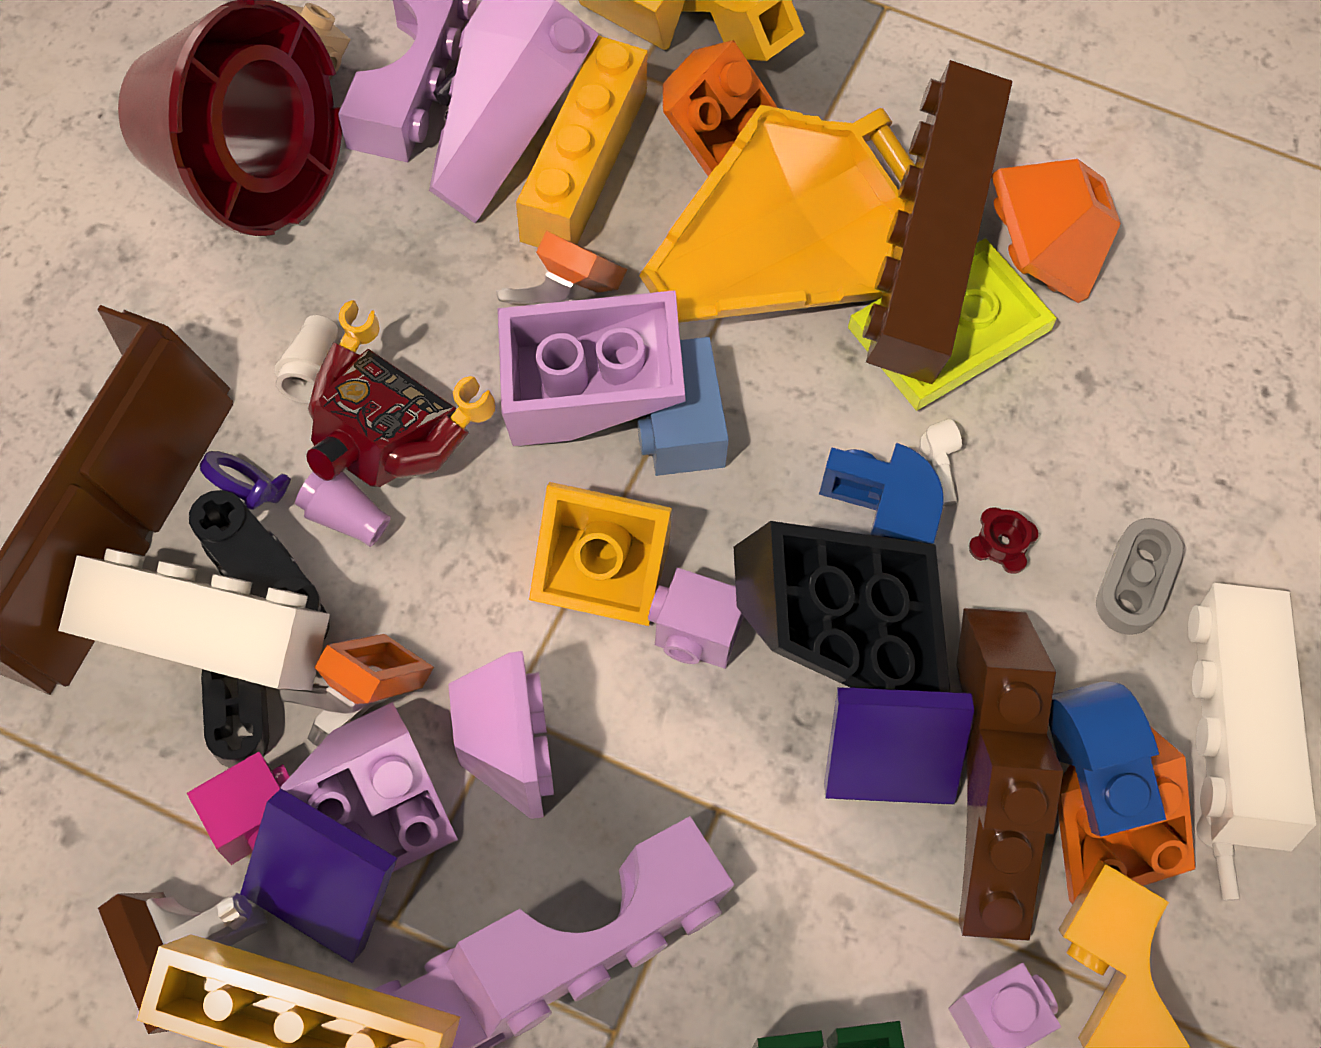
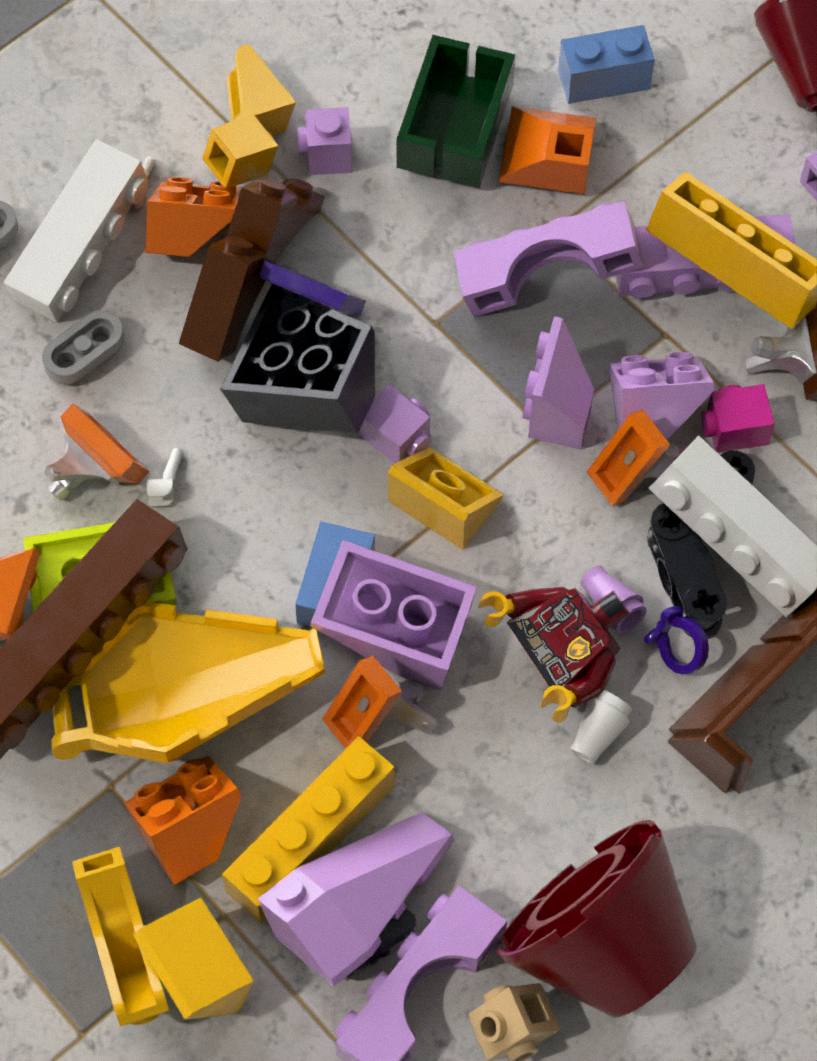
camera: 155 degrees left, 0 degrees up
(317, 875) = (704, 347): dark purple tile -> none
(901, 492) = (215, 455): blue brick -> none
(1007, 524) = (157, 396): dark red plate -> none
(1041, 446) = (90, 455): none -> orange piece
(1111, 747) = (195, 216): blue brick -> none

